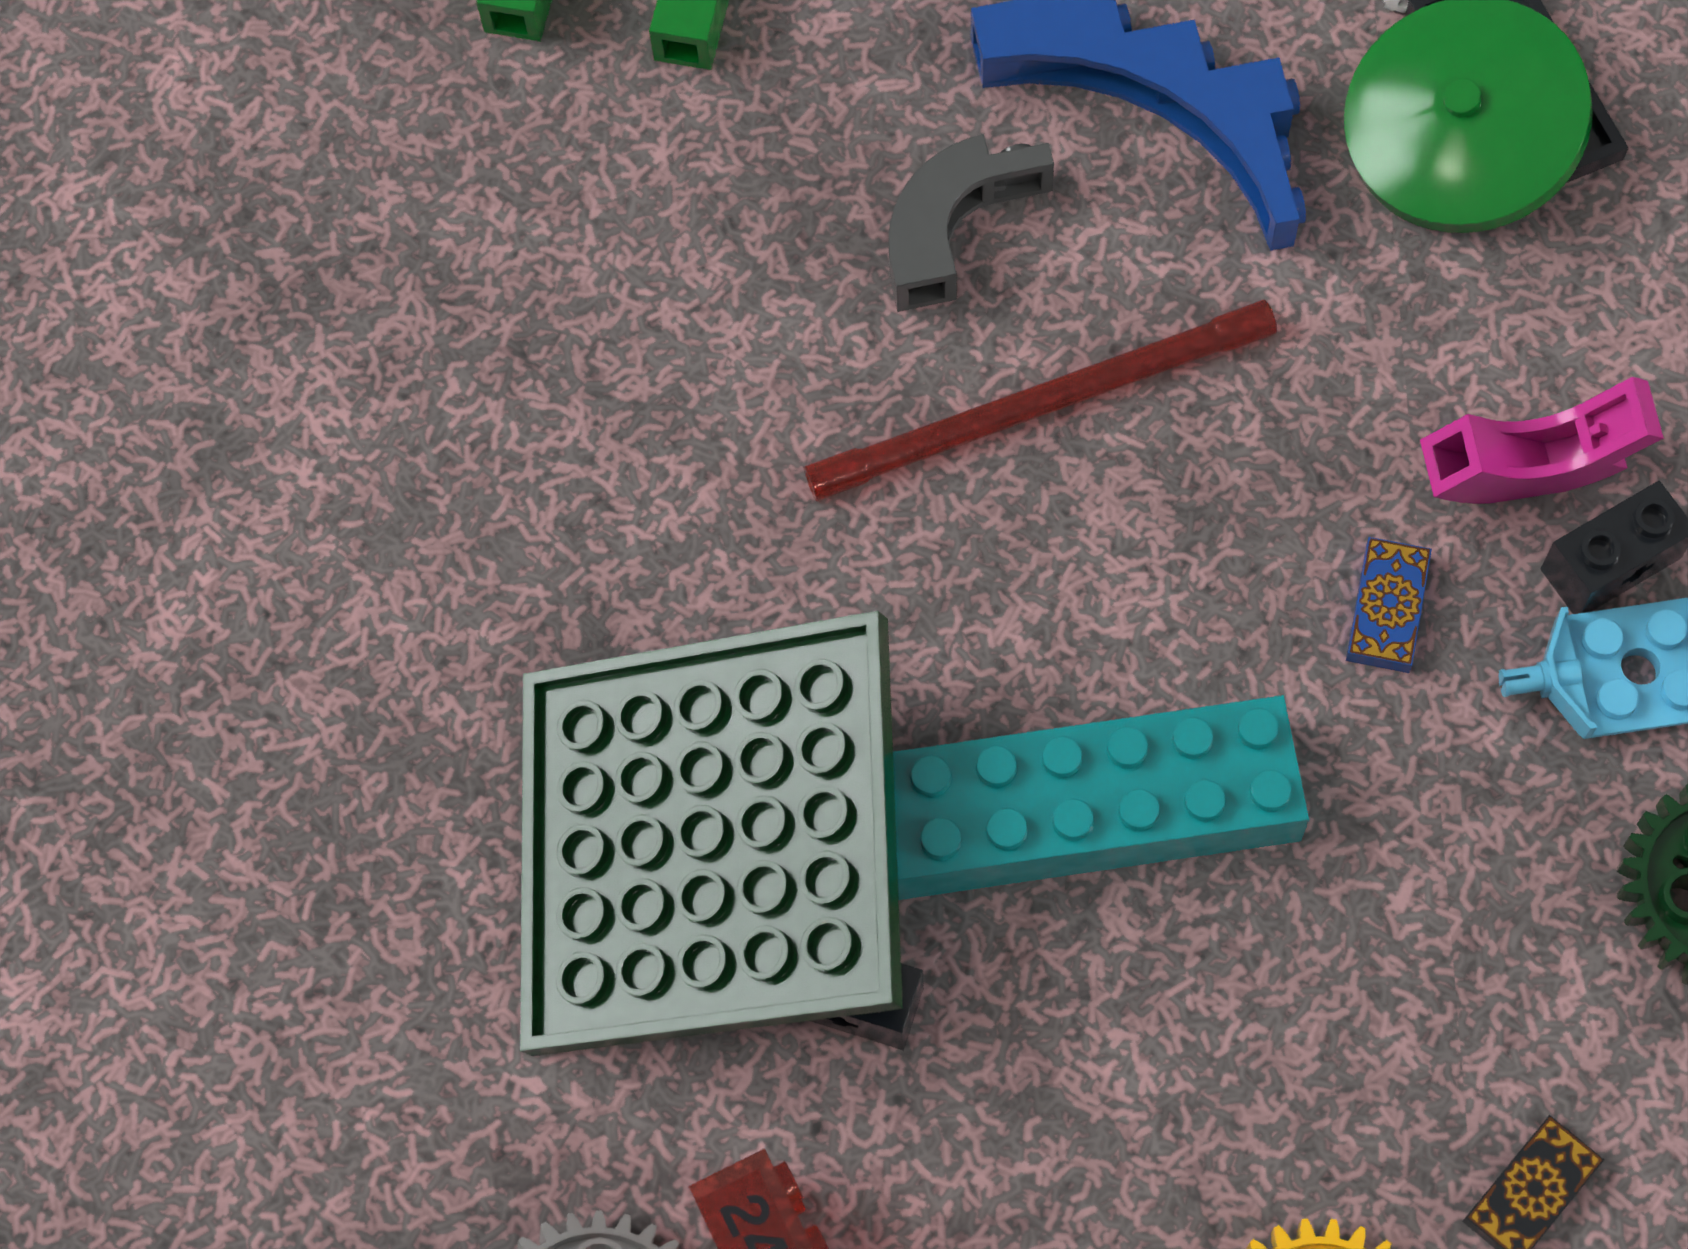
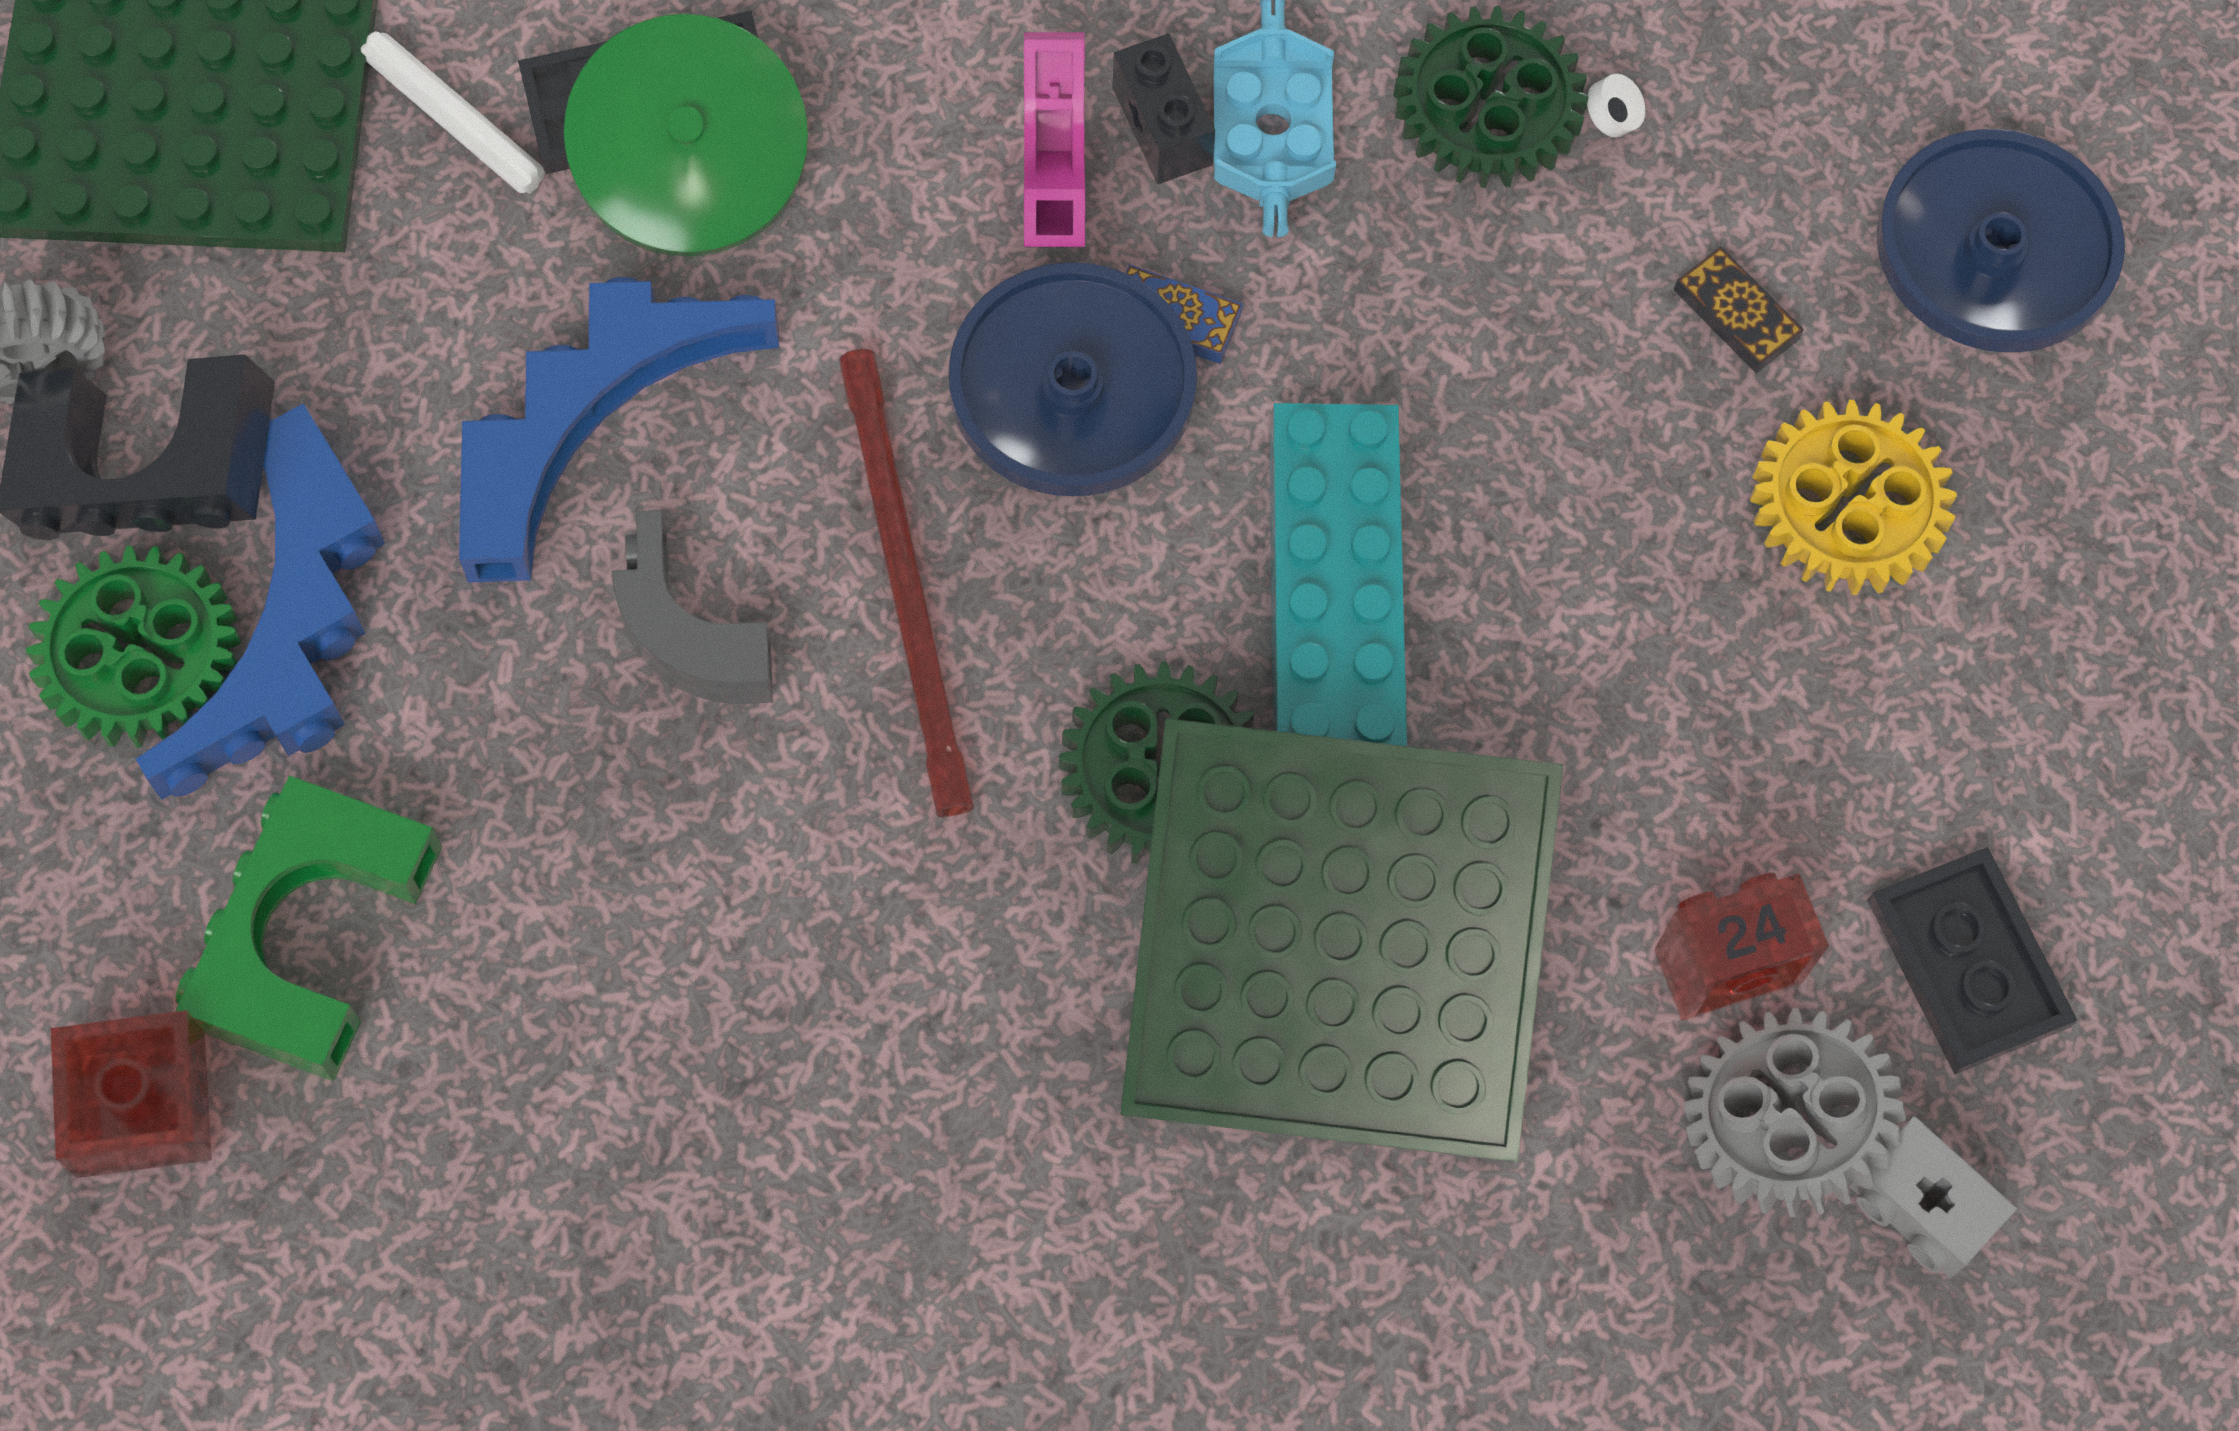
camera: 90 degrees left, 0 degrees up
(948, 631) = (1105, 762): none -> dark green gear
(1279, 508) = (1072, 379): none -> dark blue dish

